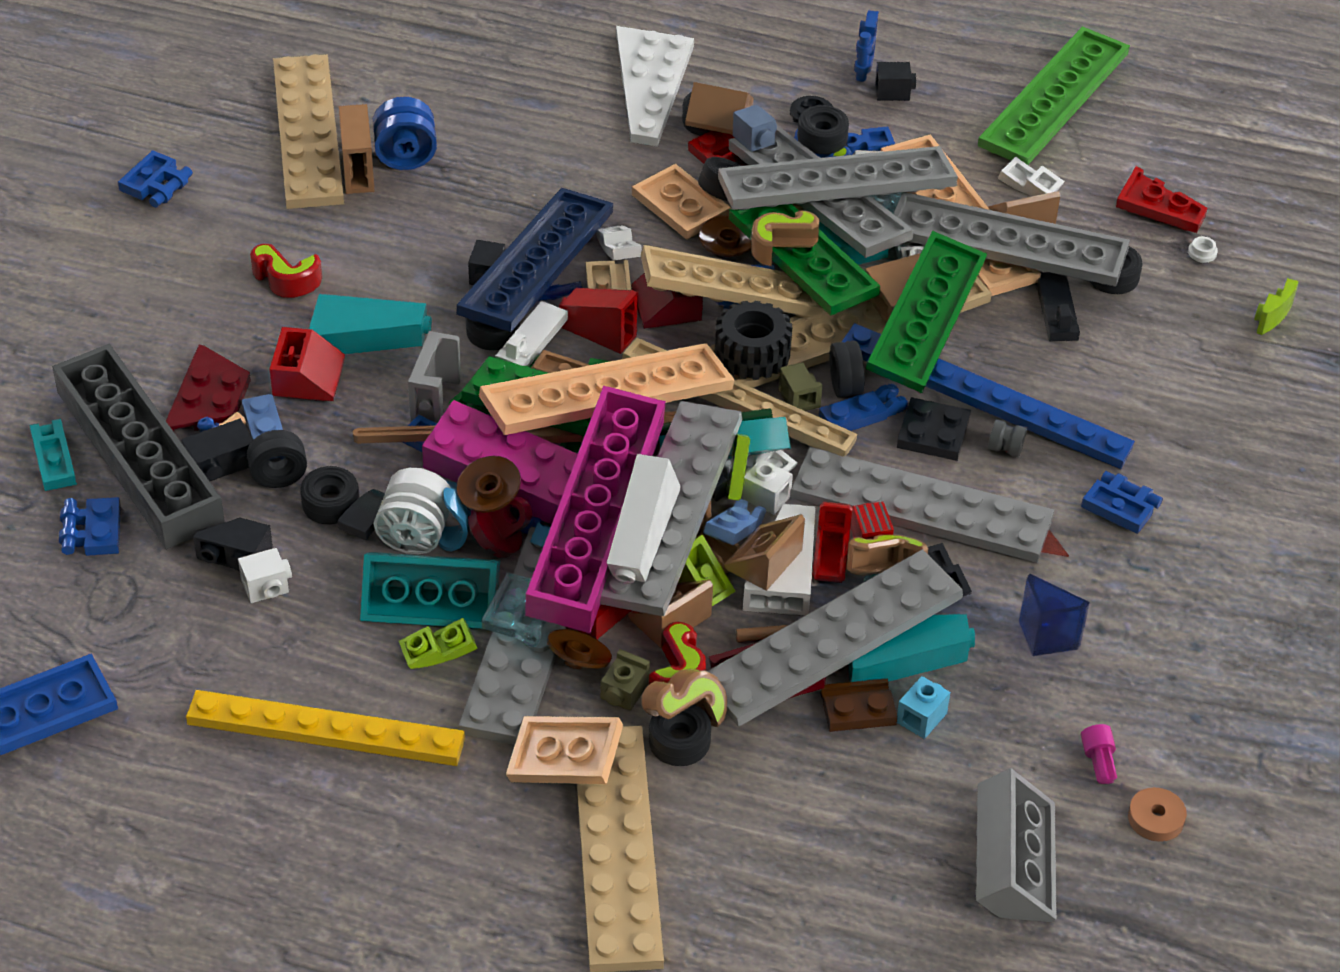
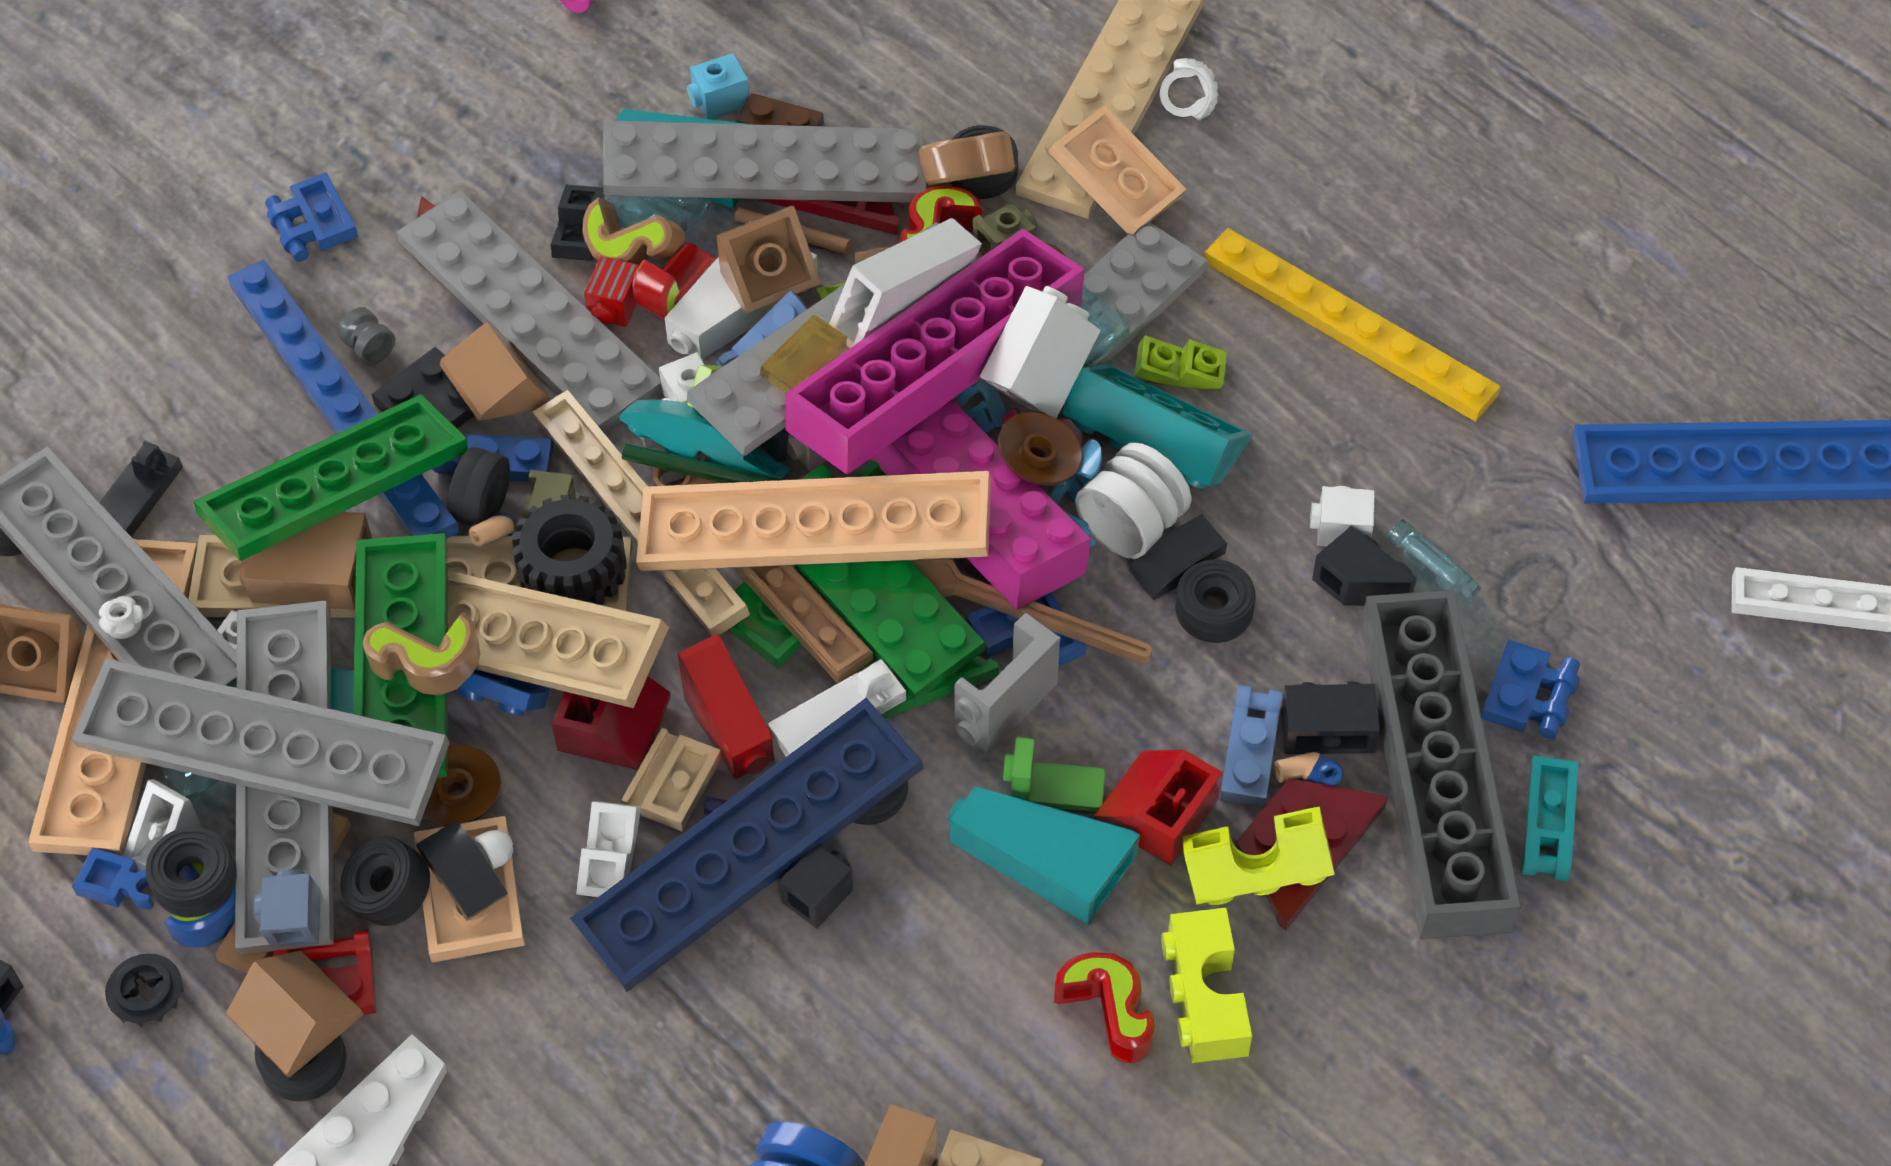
camera: 150 degrees left, 10 degrees up
(181, 567) = (1425, 554): none -> clear light blue plate
(229, 344) = (1222, 871): none -> neon yellow arch
(242, 306) = (1212, 1022): none -> neon yellow arch
(275, 444) = (1265, 655): black tyre -> none
(384, 361) = (1052, 783): none -> bright green bracket
(524, 538) = (1041, 351): none -> white brick
(545, 866) = (1188, 68): none -> white piece
(677, 204) = (495, 847): none -> white hinge
(682, 451) = (803, 354): none -> clear yellow tile
(689, 189) = (462, 869): none -> black slope
(817, 359) = (495, 527): none -> light nougat arm
(896, 440) = (492, 376): none -> medium nougat slope
(978, 212) = (123, 626): none -> white plate
(1051, 617) = (524, 95): clear blue slope -> none

